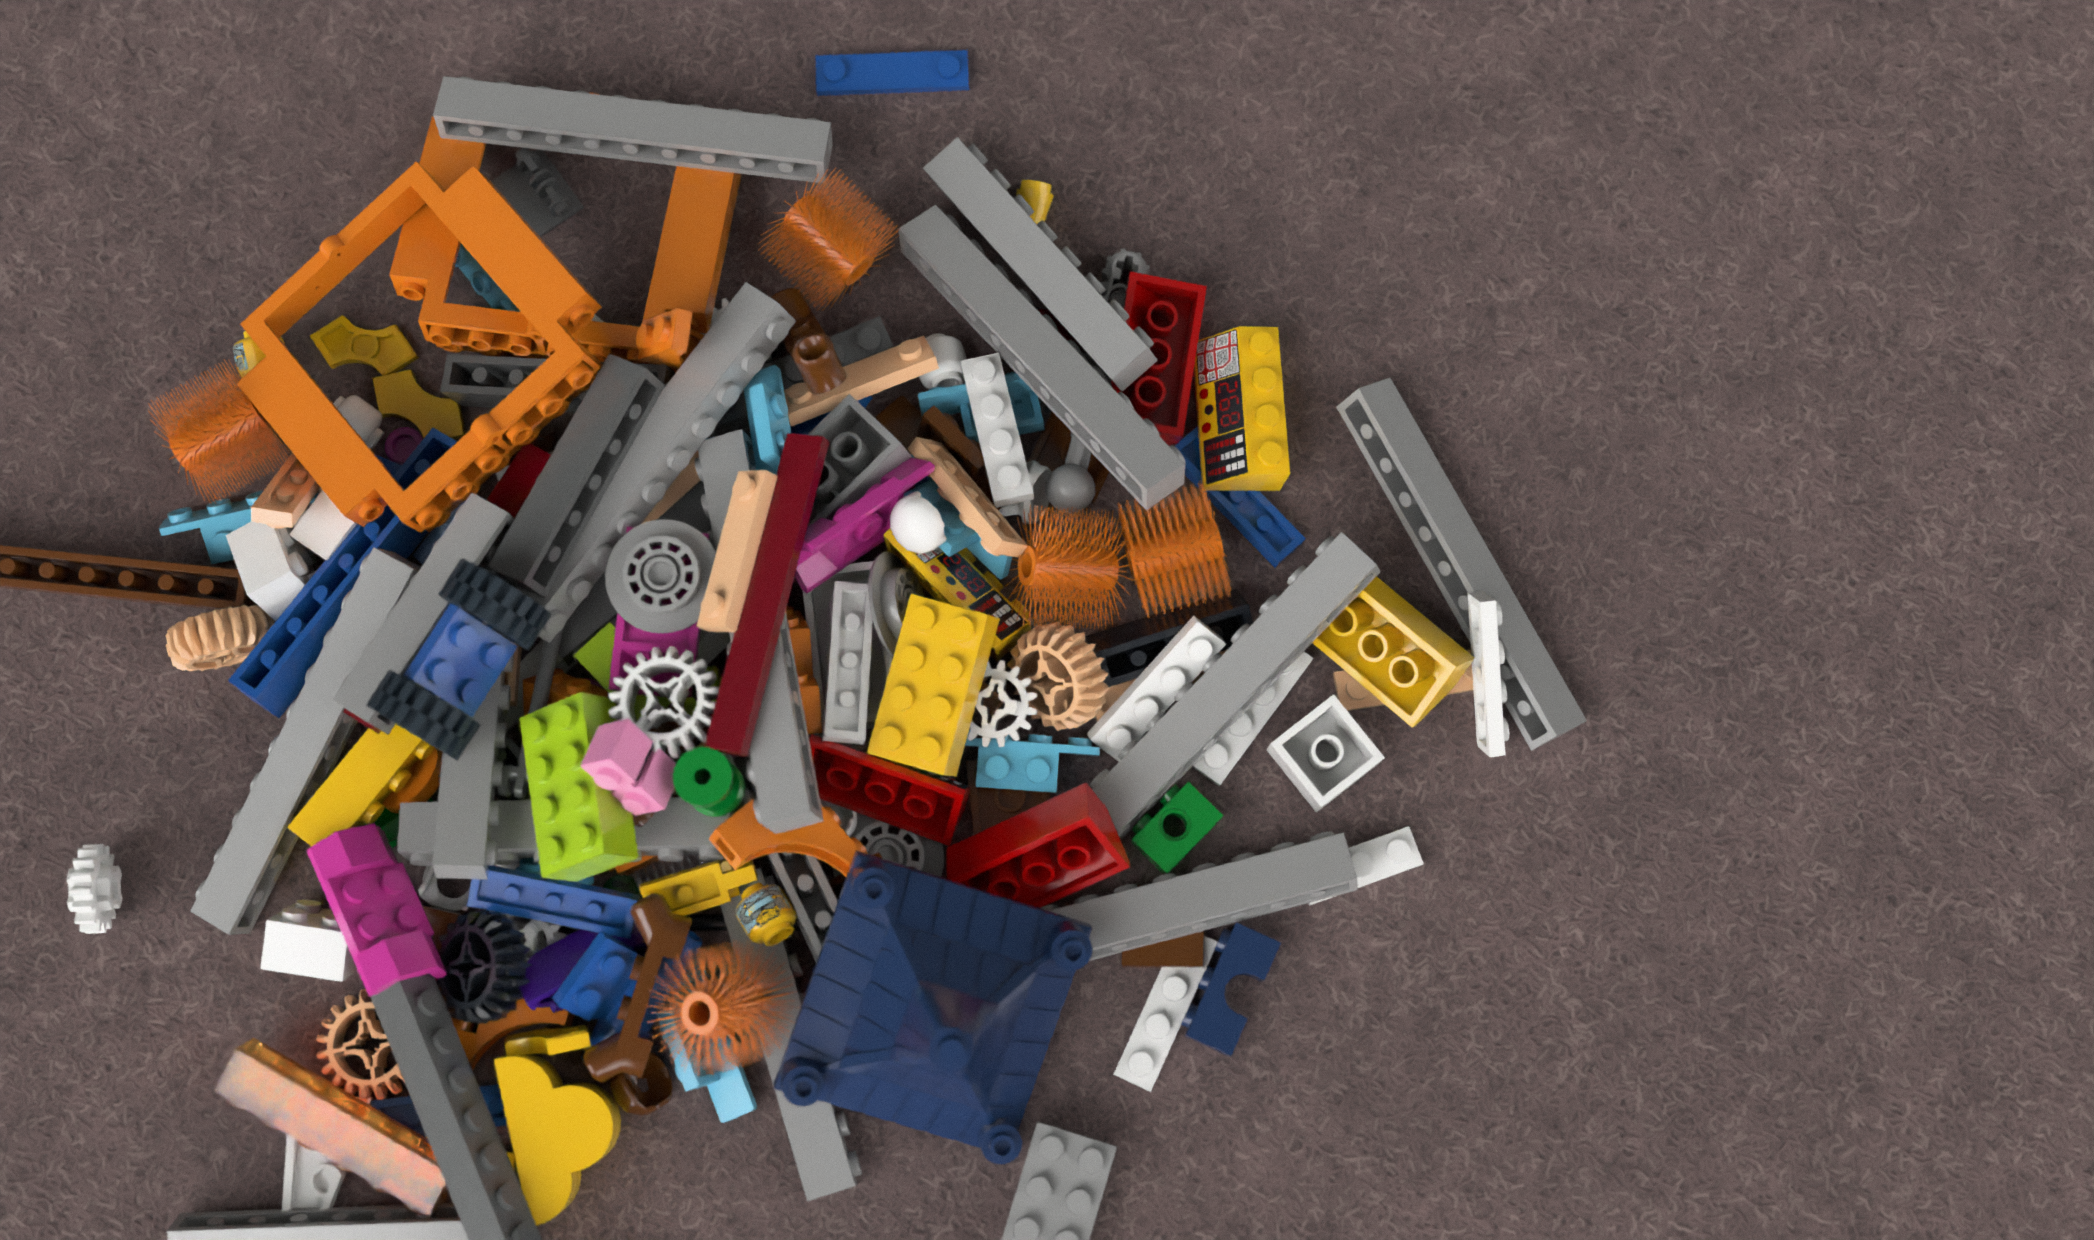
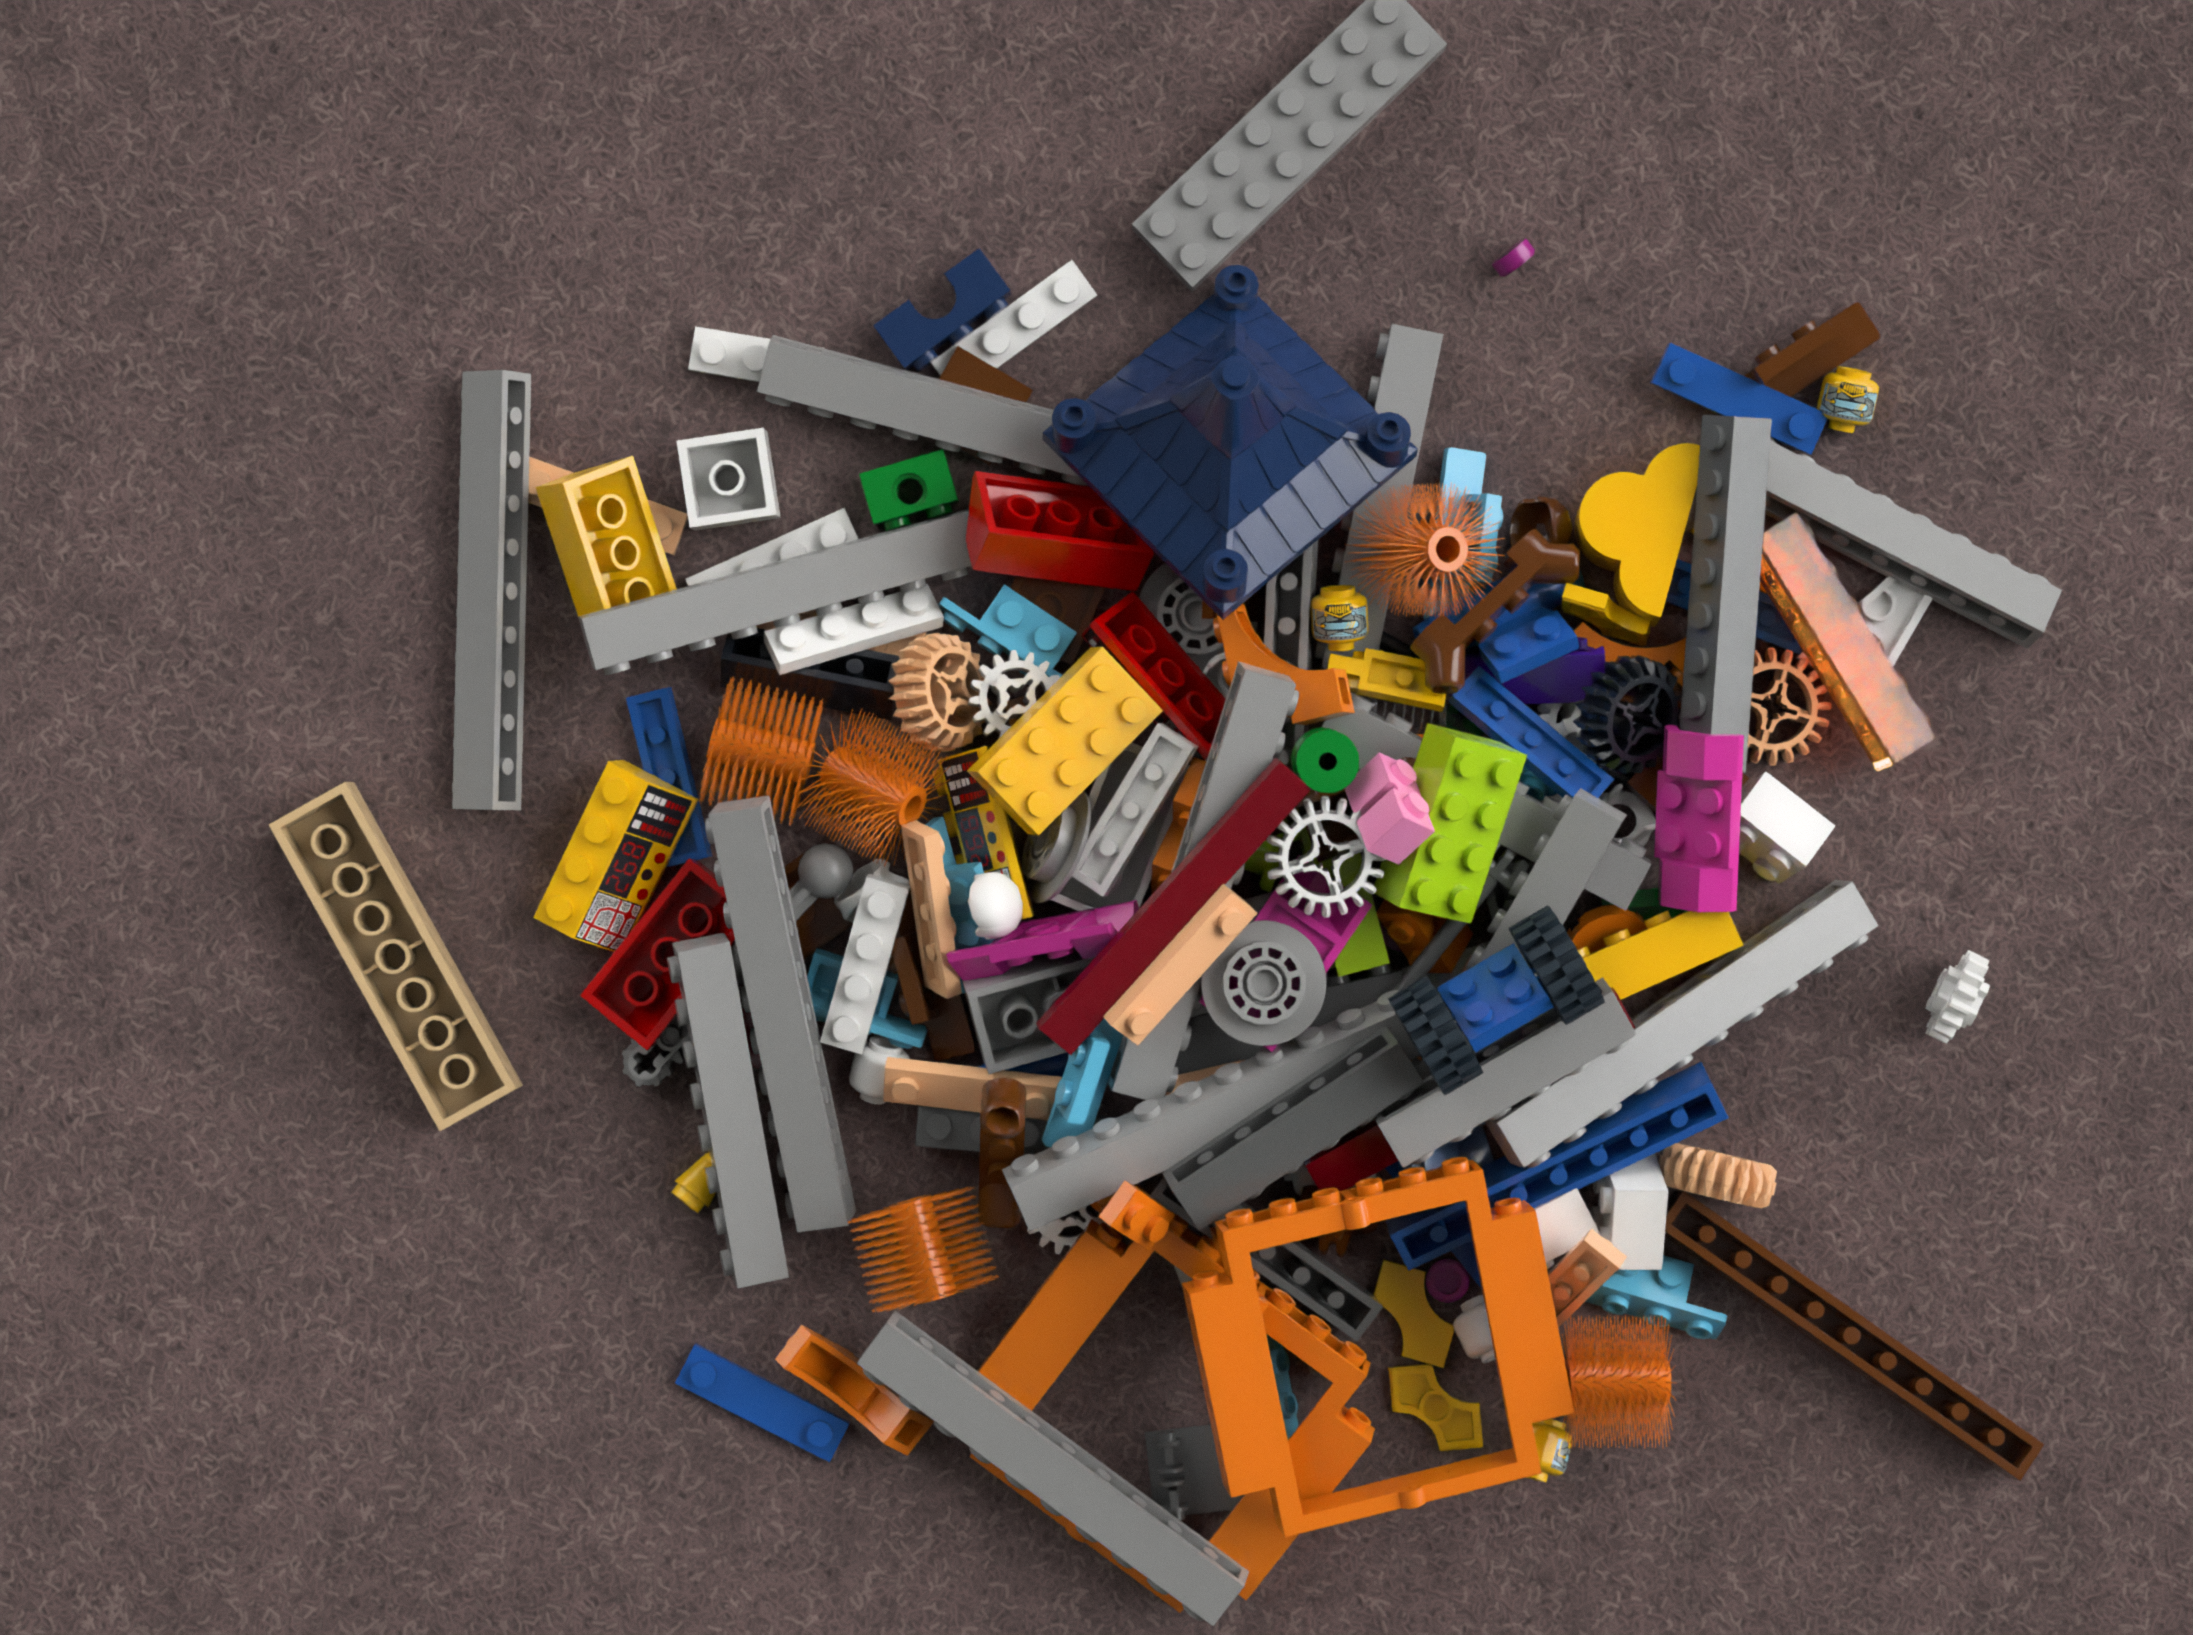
camera: 155 degrees left, 10 degrees up
(851, 117) = (840, 1378): none -> orange arch
(1366, 244) = (395, 955): none -> tan brick
(1488, 687) = (537, 455): white plate -> none

